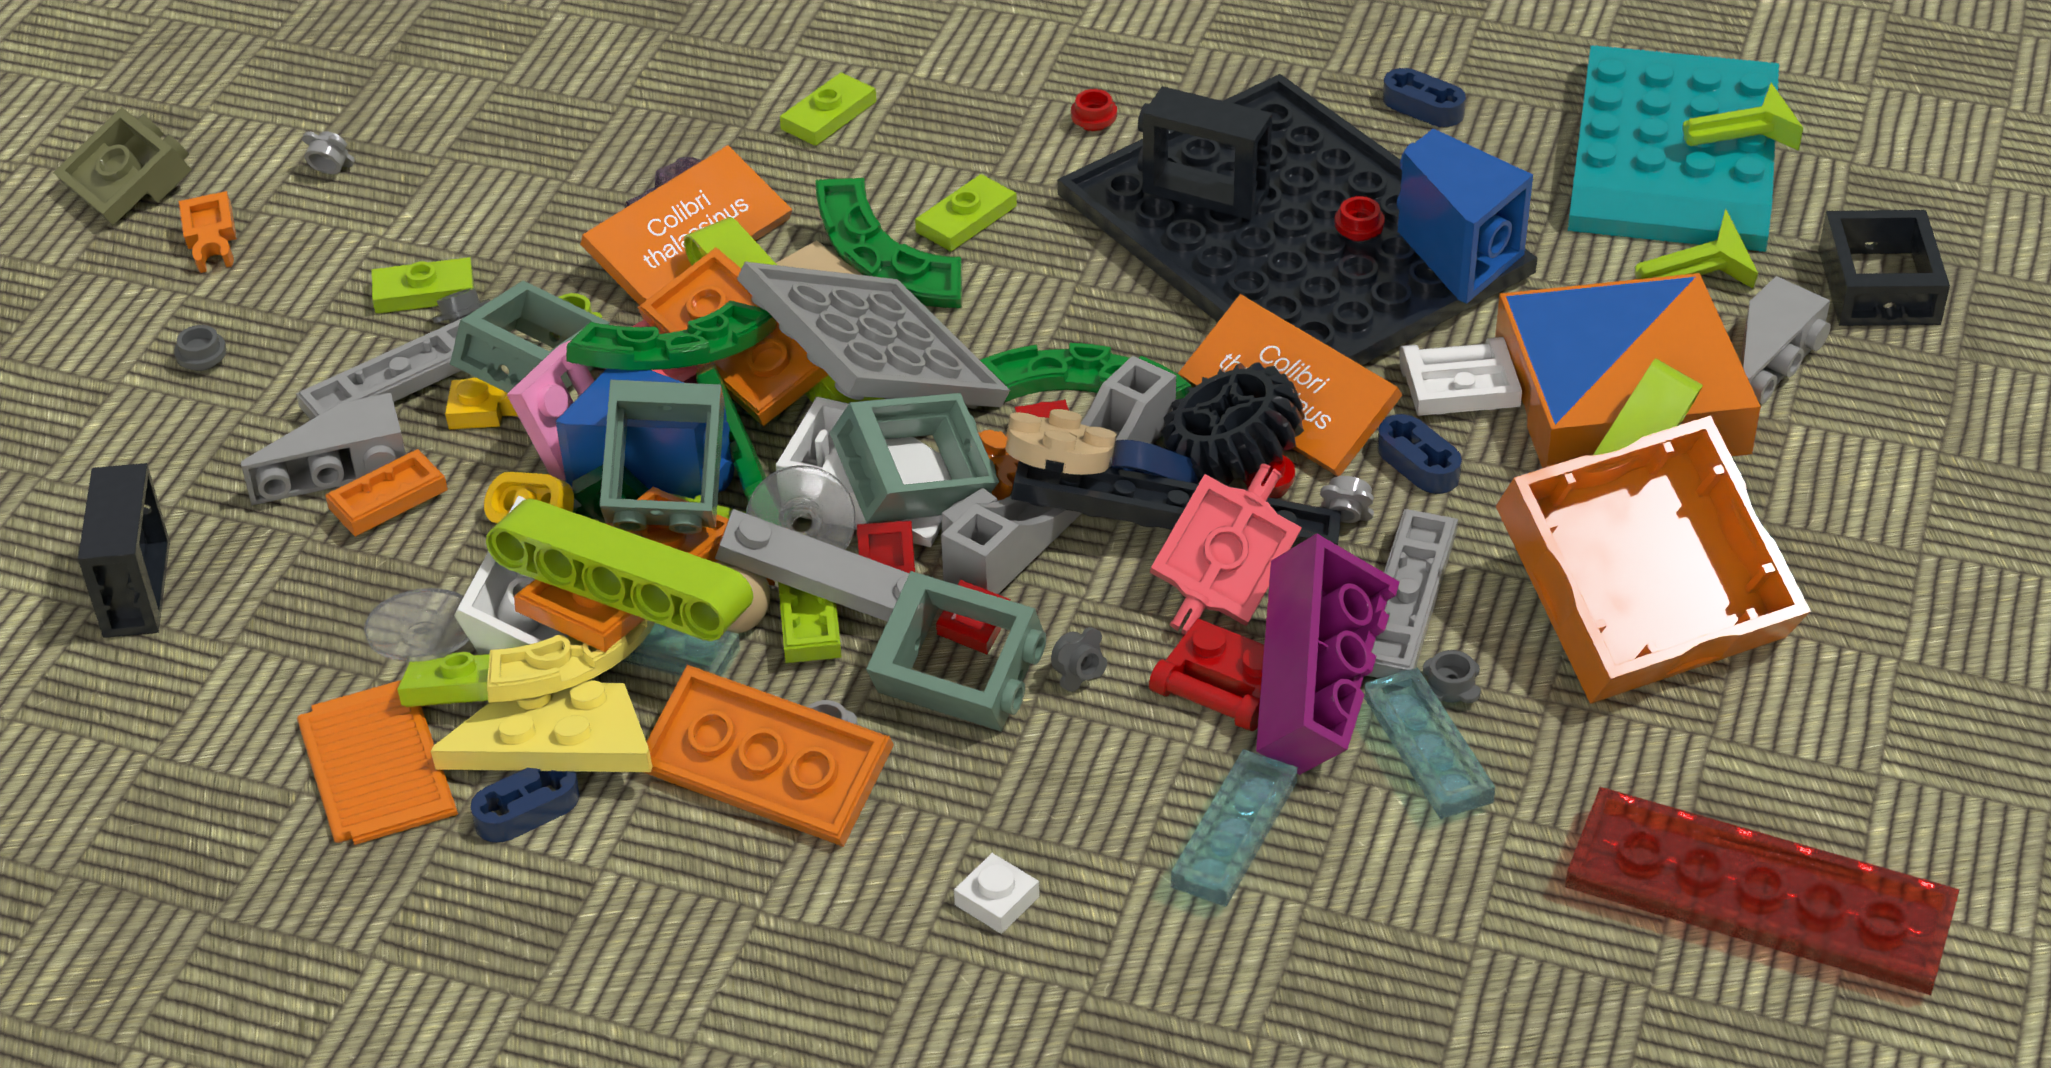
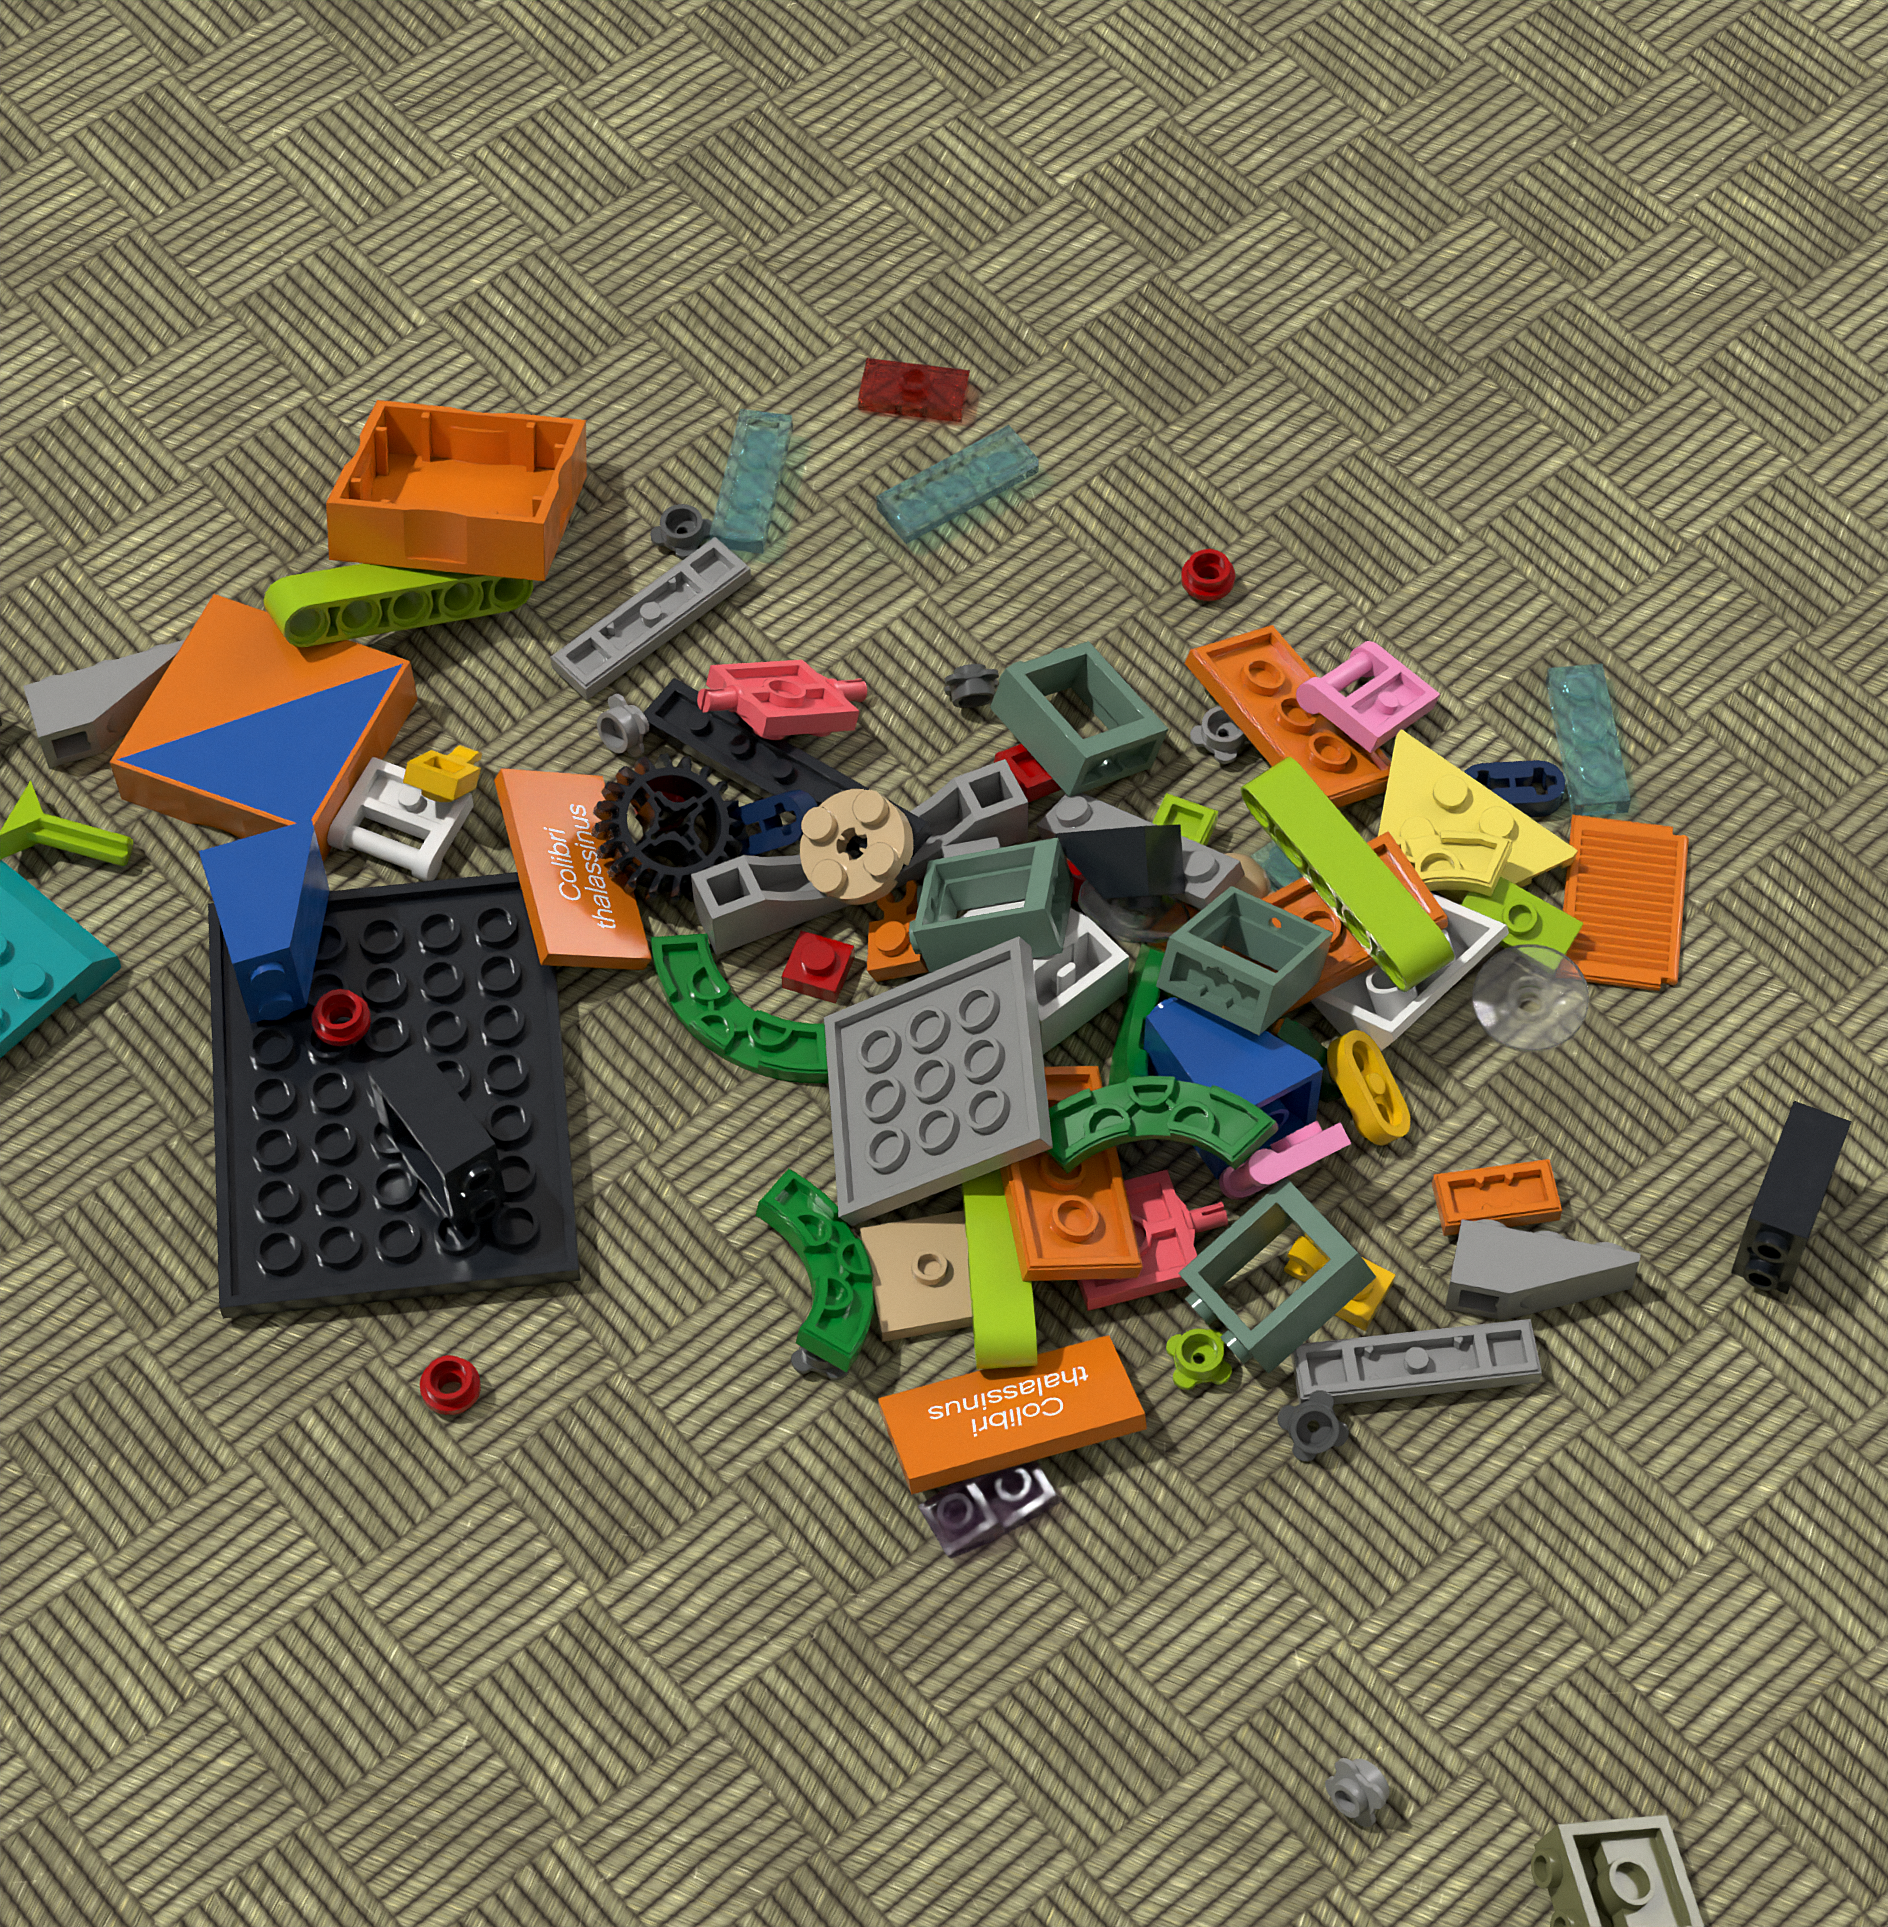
camera: 150 degrees left, 15 degrees up
(199, 348) = (1619, 1523): dark grey plate -> none
(208, 227) = (1545, 1727): orange plate -> none
(419, 284) = (1334, 1505): lime plate -> none
(472, 880) = (1587, 740): none -> clear light blue plate
(683, 790) = (1377, 708): none -> bright pink plate
(826, 512) = (1129, 862): none -> black slope
(828, 109) = (732, 1564): lime plate -> none
(931, 857) = (1208, 564): none -> red plate
(965, 212) = (694, 1303): lime plate -> none
(996, 893) = (1174, 529): white plate -> none
(1215, 672) = (845, 637): red plate -> none
(1318, 650) = (786, 562): magenta wedge -> none
(1356, 909) = (914, 390): none -> clear red plate
(1419, 453) = (496, 757): dark blue beam -> none
(1424, 97) = (101, 1210): dark blue beam -> none
(1444, 378) = (444, 776): none -> yellow plate
(1764, 890) = (619, 260): clear red plate -> none

